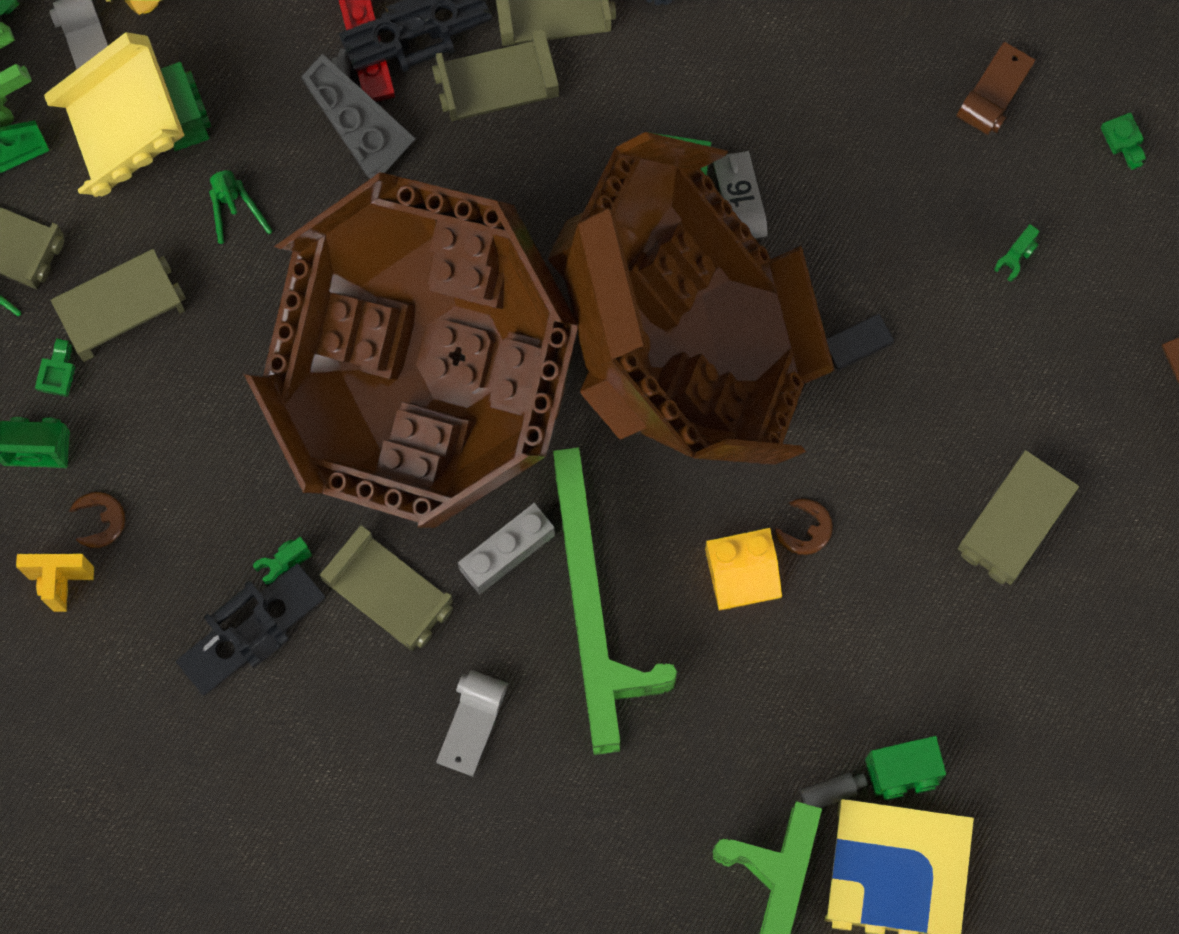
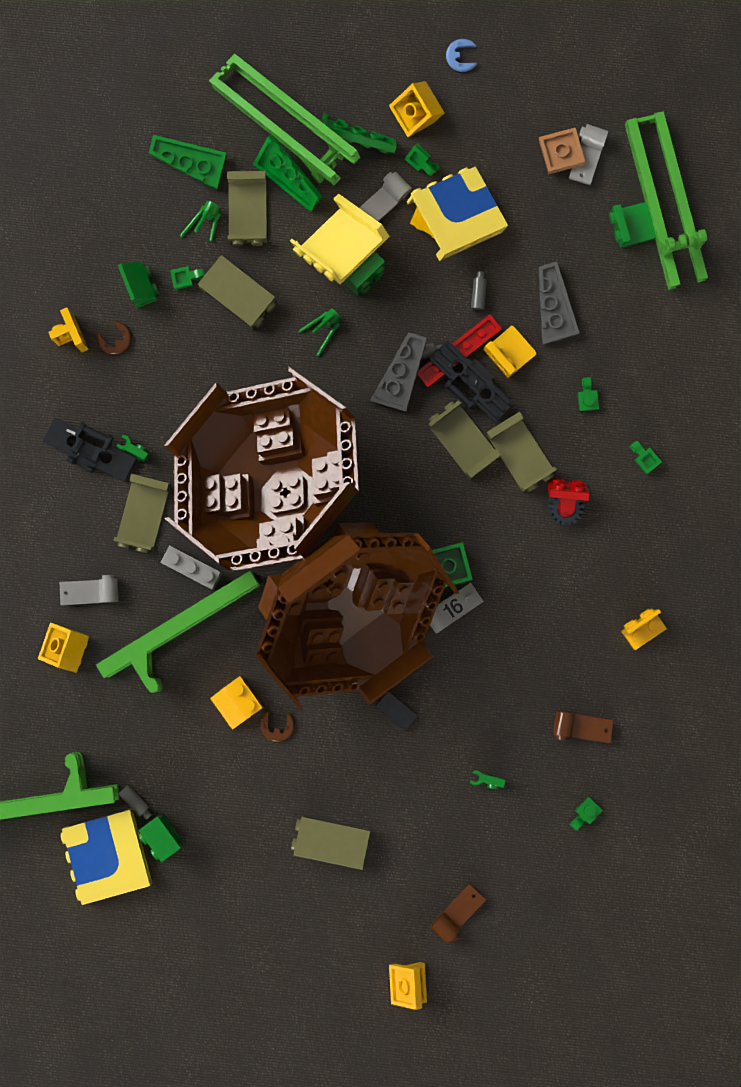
camera: 65 degrees right, 10 degrees up
(541, 799) = (63, 647): none -> yellow slope

